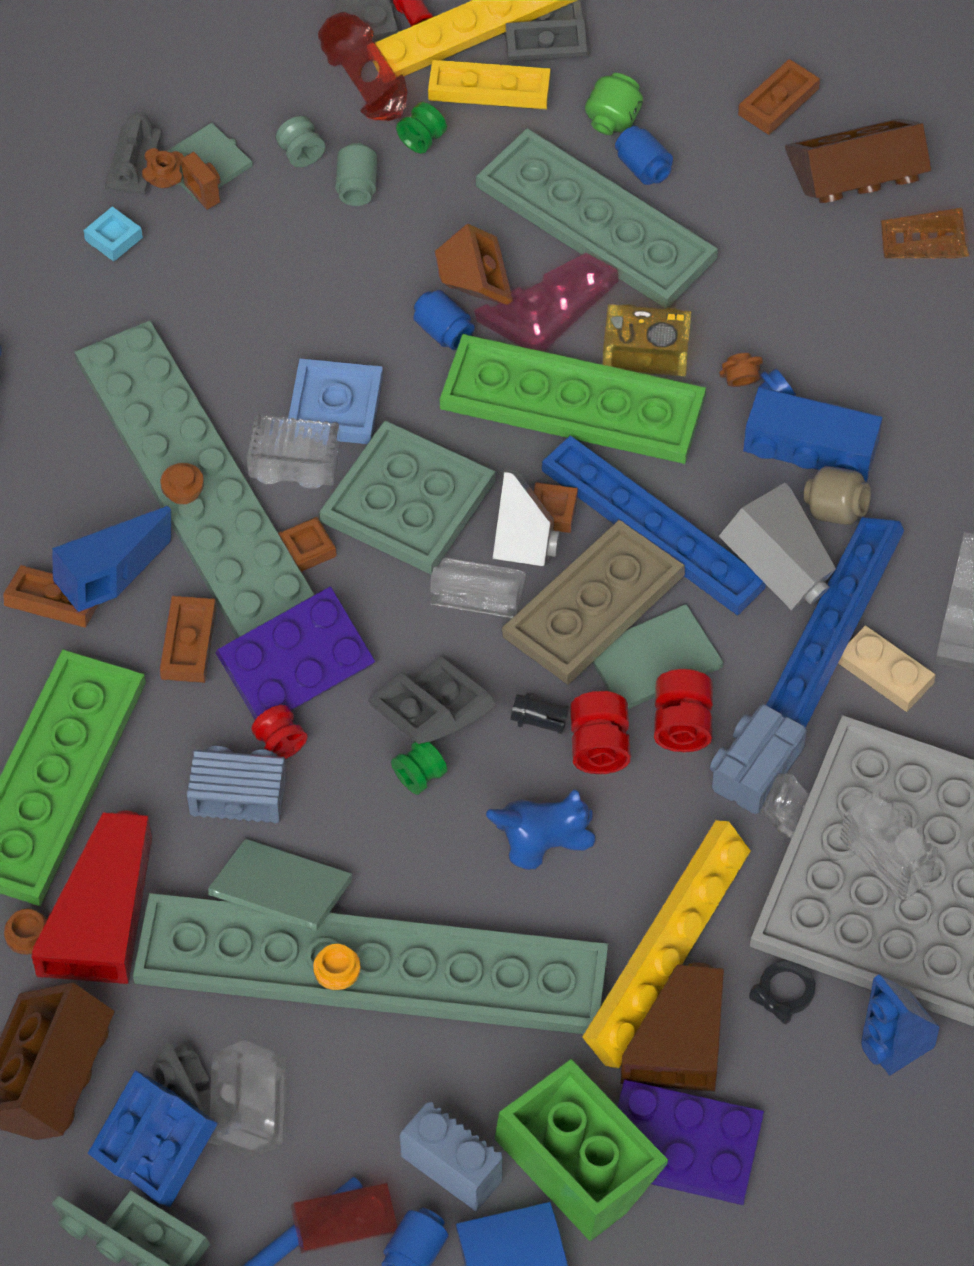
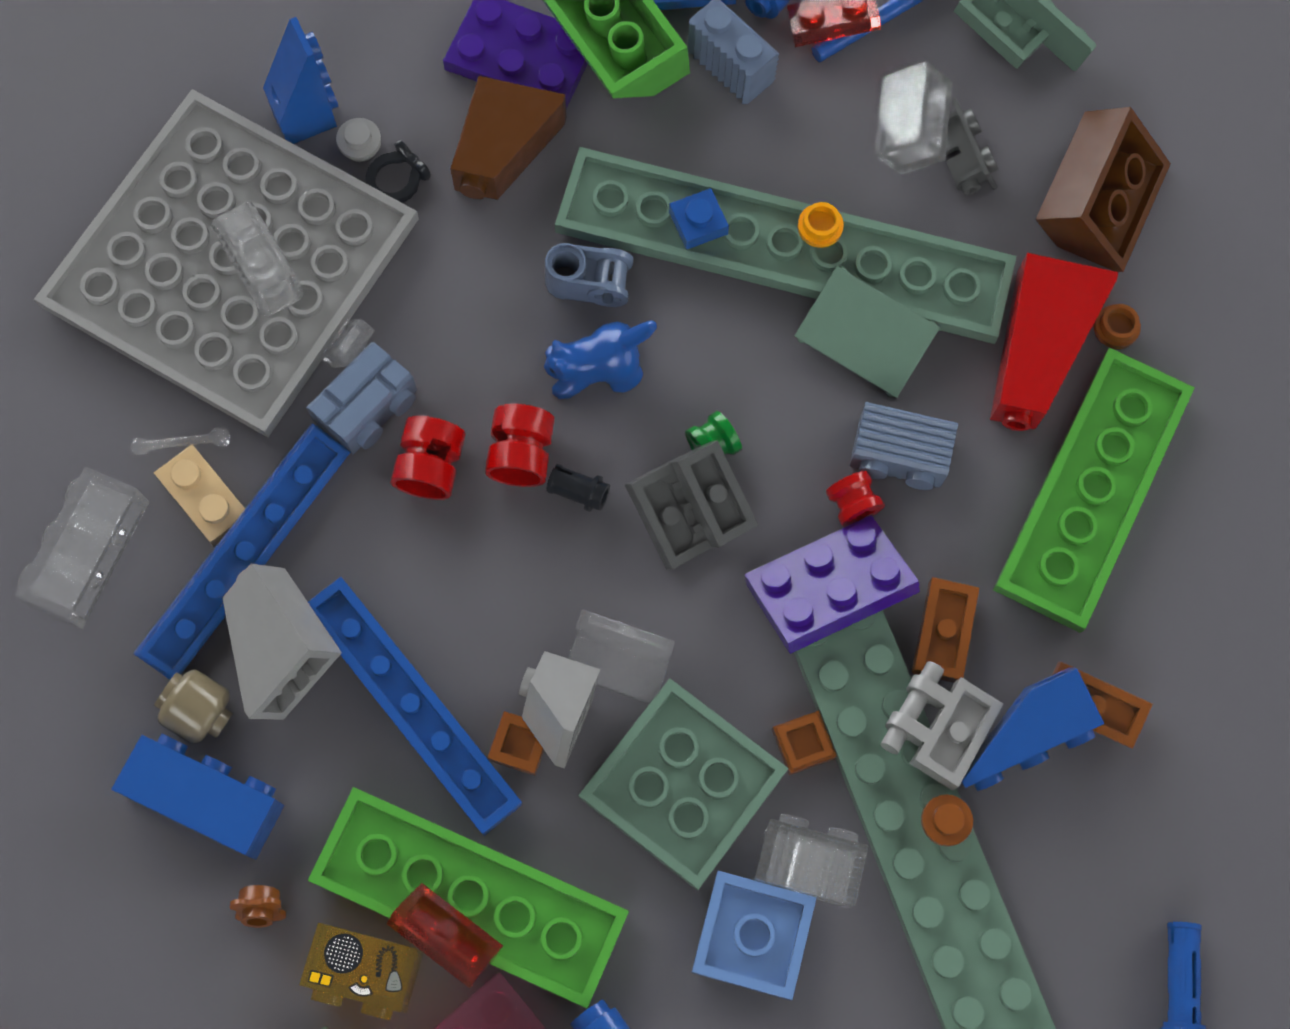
camera: 175 degrees left, 15 degrees up
(152, 1138) = (999, 100): blue slope -> none
(178, 543) = (956, 731): none -> light grey plate
(462, 960) = (698, 218): none -> blue plate
(562, 904) = (591, 274): none -> sand blue piece
(583, 353) = (445, 935): none -> clear red plate
(593, 601) = (495, 612): dark tan plate -> none
(653, 648) = (443, 548): sand green piece -> none
(667, 942) = (485, 231): yellow plate -> none
(776, 382) = (224, 870): blue plate -> none
(831, 1016) = (359, 139): none -> light grey plate
(887, 720) = (218, 436): none -> clear hinge

